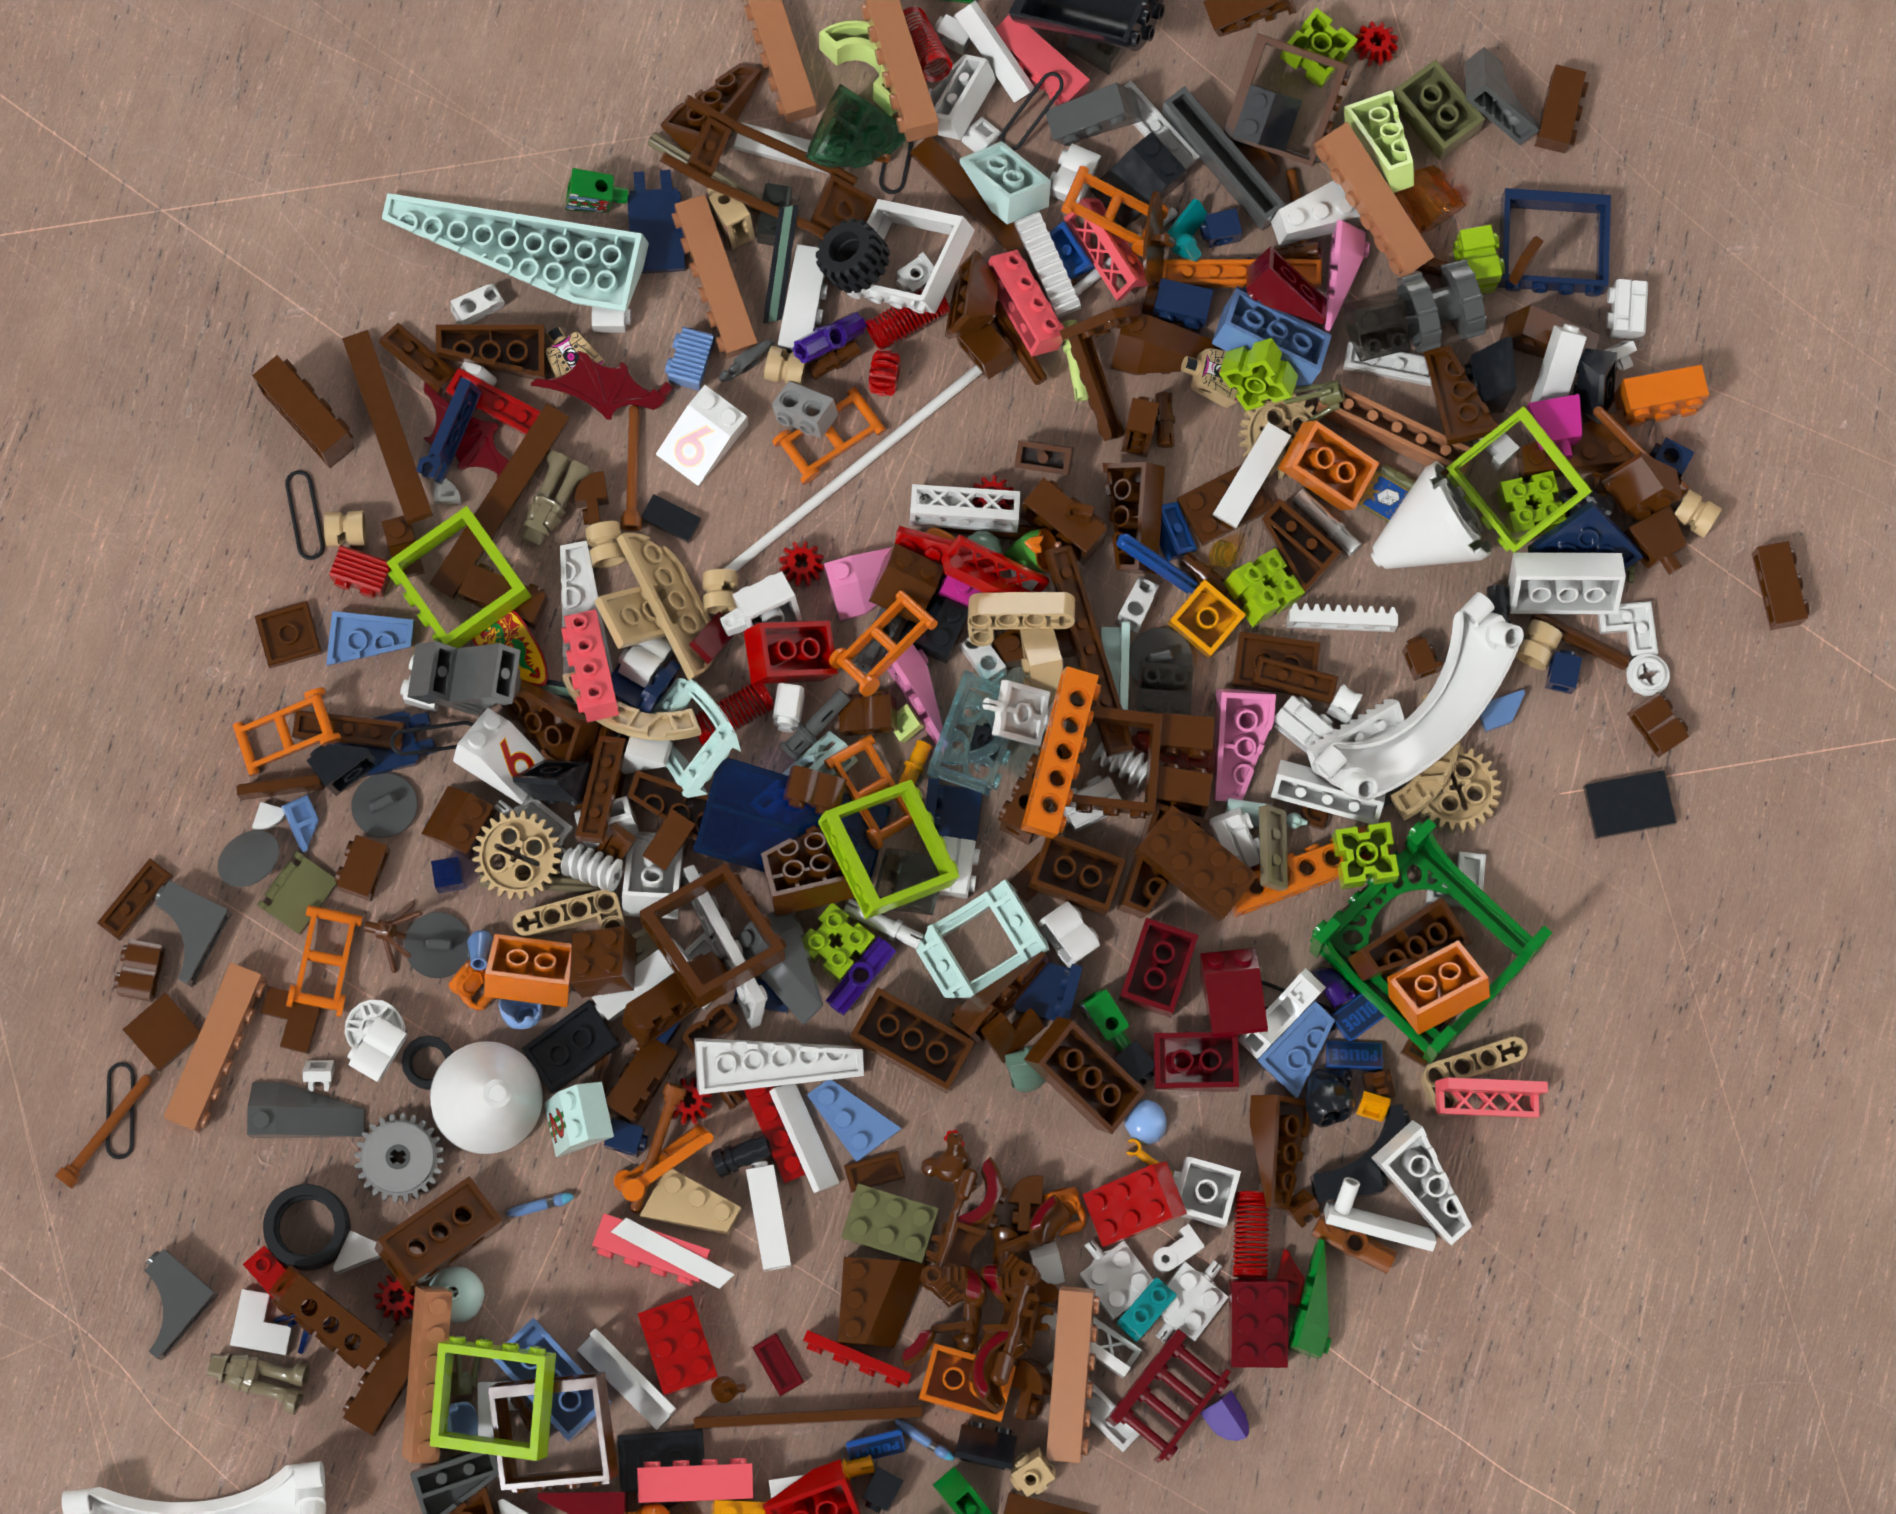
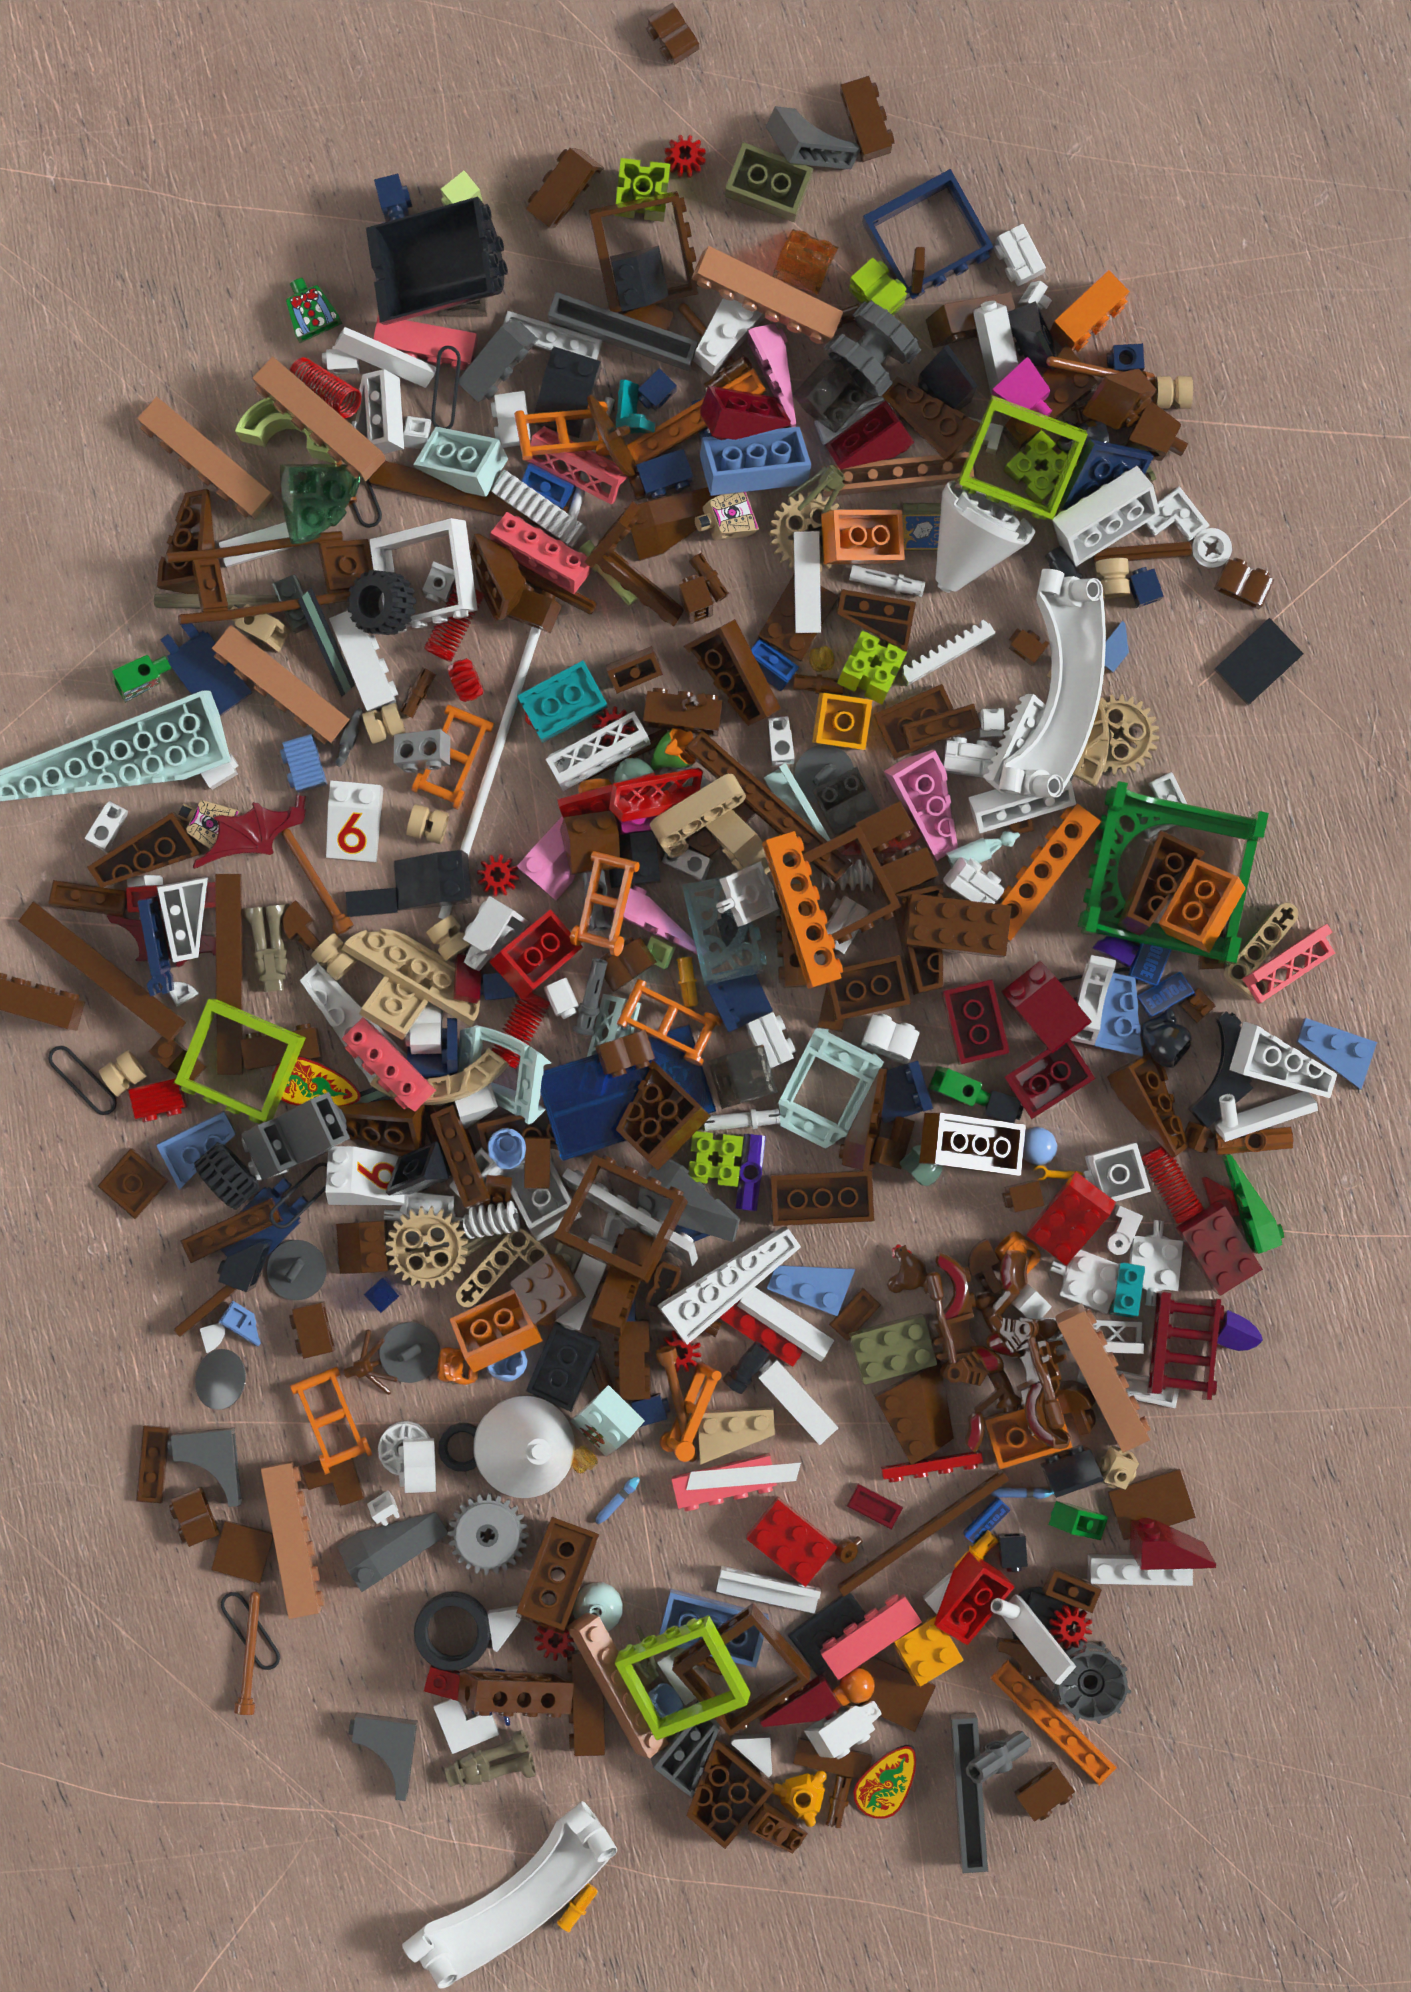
camera: 30 degrees left, 10 degrees up
(297, 889) = (273, 1378): olive piece -> none
(312, 697) = (187, 1225): orange piece -> none
(377, 675) = (226, 1175): none -> black tyre
(479, 949) = (445, 1337): medium blue cone -> none
(493, 420) = (183, 915): none -> white wedge
(536, 1145) = (585, 1458): none -> clear yellow tile
(649, 807) = (507, 1148): none -> light blue hair
(734, 663) = (496, 987): none -> dark blue brick
(740, 531) = (433, 880): none -> black slope
(760, 472) = (419, 821): none -> tan wheel
(829, 337) = (404, 679): dark purple piece -> none
(853, 868) = (692, 1097): lime window -> none
(960, 445) = (562, 701): none -> teal piece
(1102, 1156) = (1023, 1196): none -> reddish brown brick
(1156, 563) = (777, 702): blue axle -> none
(1258, 374) = (764, 498): lime brick -> none
(1273, 848) = (1007, 874): dark tan plate -> none
(1373, 1106) = (1204, 1025): light orange tile -> none
(1375, 842) = (1099, 837): lime brick -> none
(1383, 137) = (739, 236): yellowish green wedge -> none
(1393, 385) = (870, 439): none -> dark red slope
(1489, 1211) = (1339, 1049): none -> medium blue wing
(1780, 585) = (1272, 409): reddish brown brick -> none

